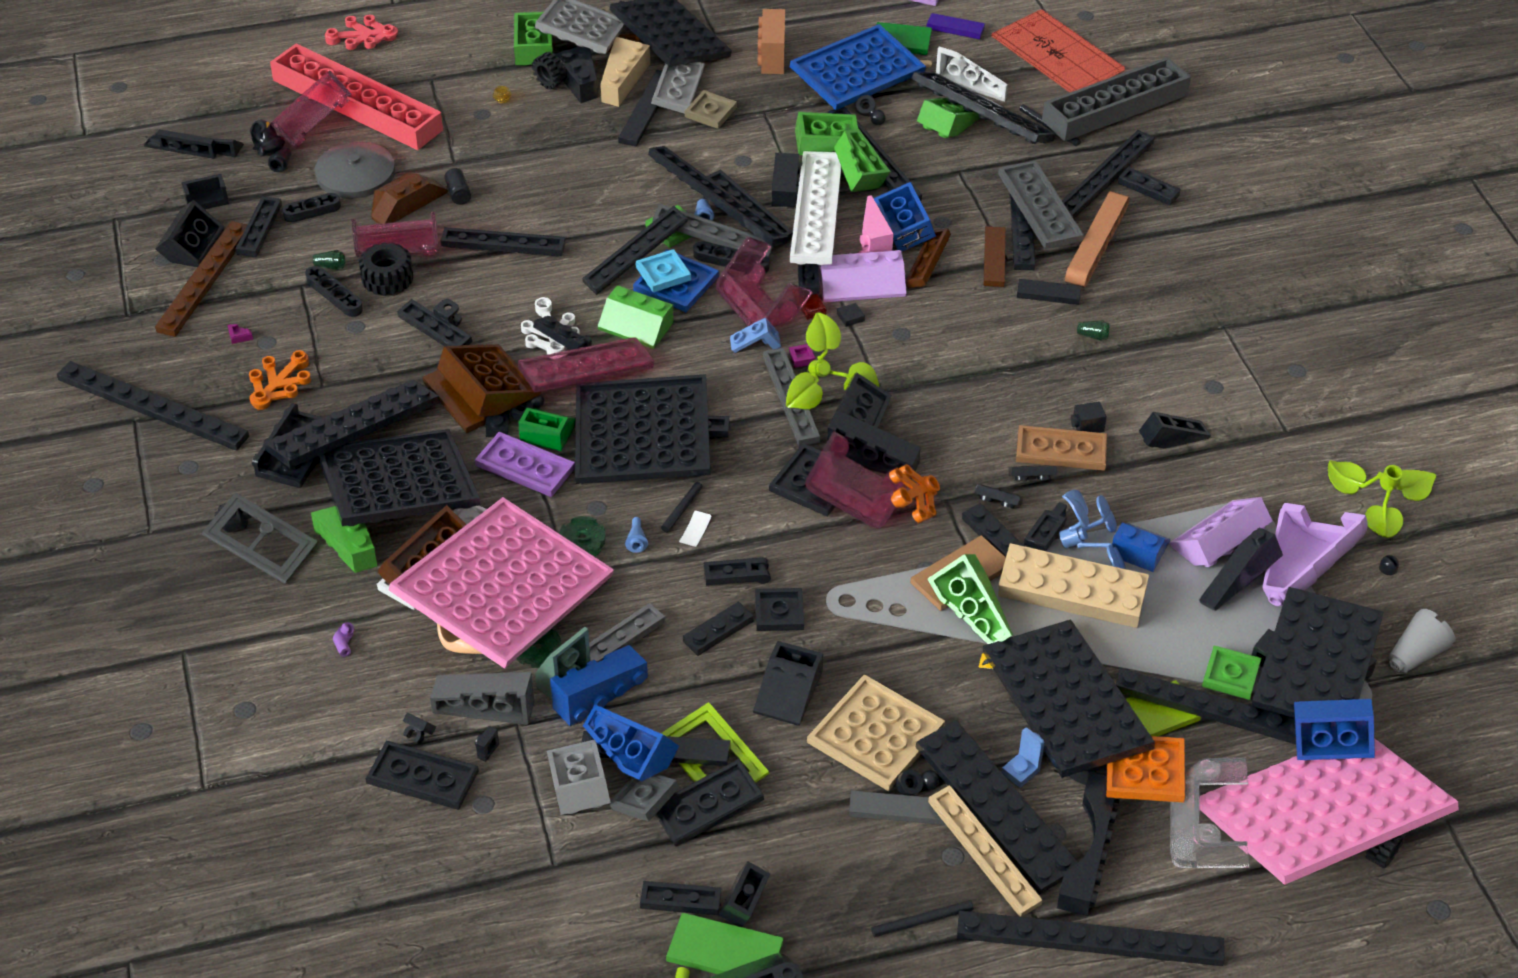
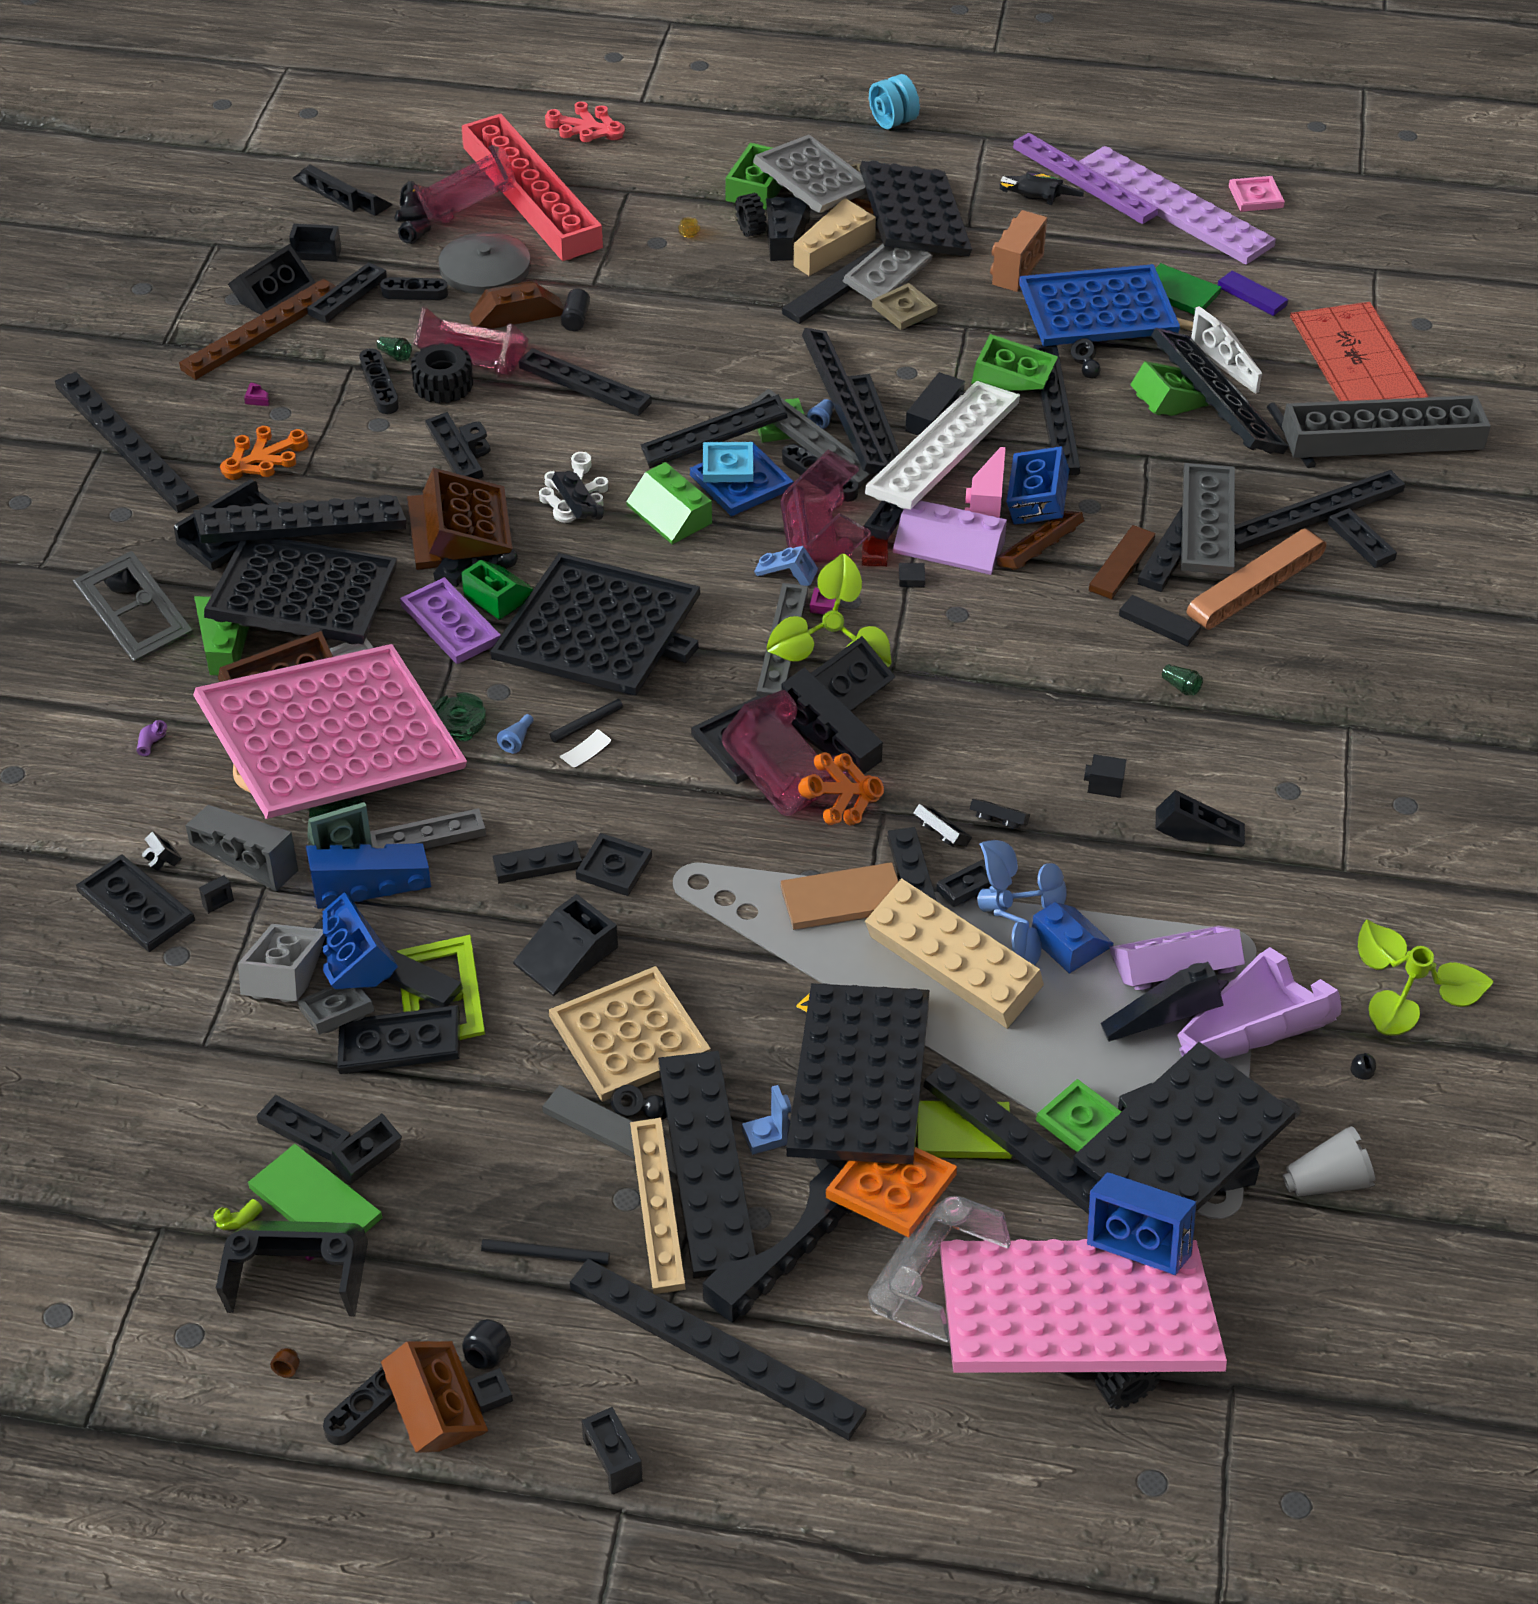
camera: 25 degrees right, 0 degrees up
(585, 364) = (579, 535): clear pink plate -> none
(737, 571) = (596, 808): black plate -> none
(860, 162) = (1027, 410): bright green wedge -> none
(970, 594) = (829, 917): bright green wedge -> none
(1061, 447) = (1055, 798): medium nougat tile -> none

